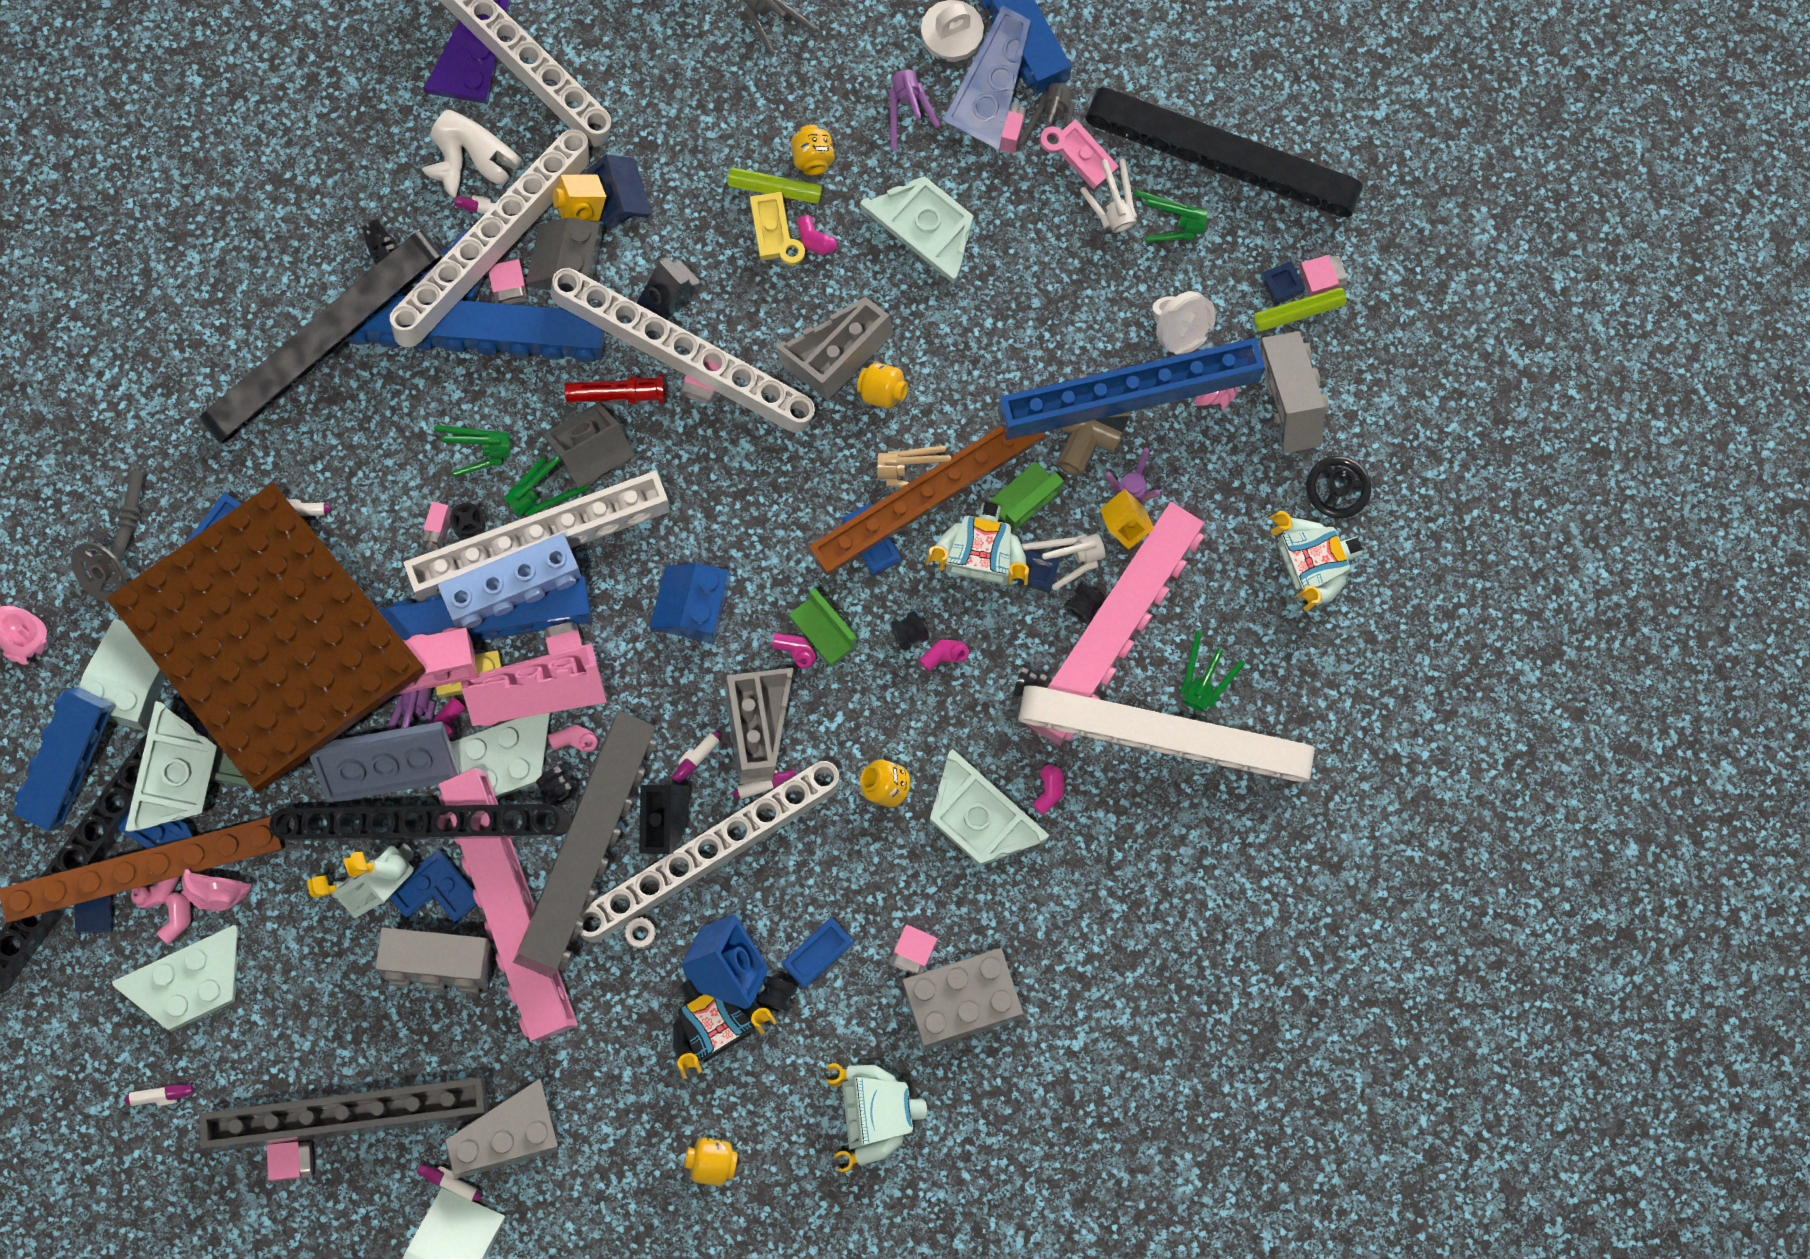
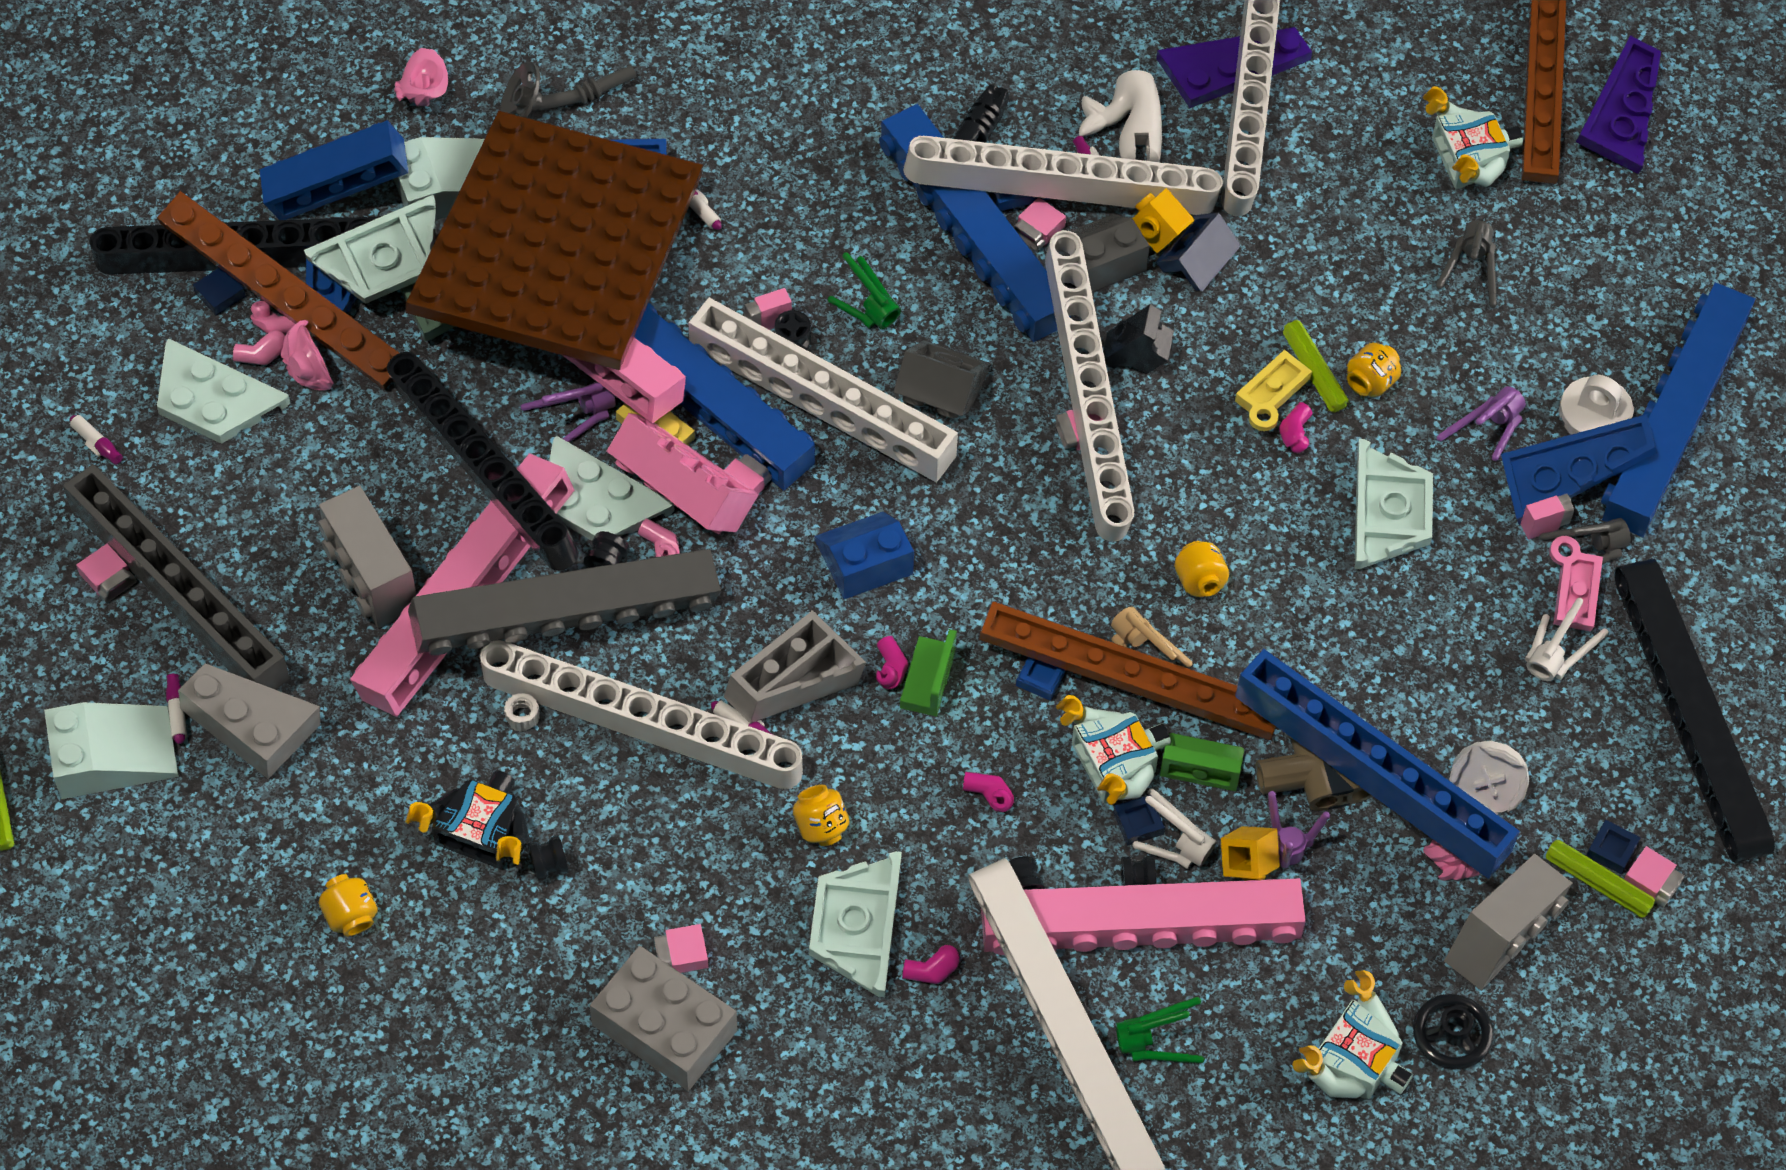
camera: 55 degrees right, 15 degrees down
(321, 337) = (860, 110): black beam -> none
(369, 880) = (401, 458): light aqua torso -> none
(384, 762) = (516, 401): sand blue tile -> none
(436, 880) = (440, 516): blue tile -> none
(449, 714) = (589, 431): dark pink arm -> none
(510, 581) = (758, 386): light blue brick -> none
(522, 496) = (852, 358): green plant -> none
(632, 389) = (1021, 377): red pin -> none
(662, 817) = (642, 651): black slope -> none
(693, 758) = (721, 649): piece -> none
(725, 963) = (542, 790): blue slope -> none
(817, 953) = (616, 871): blue tile -> none
(837, 348) = (1206, 509): light grey wedge -> none
(875, 1112) = (495, 1013): light aqua torso -> none
(909, 631) = (985, 743): black wheel -> none
(1190, 218) = (1599, 721): green plant -> none

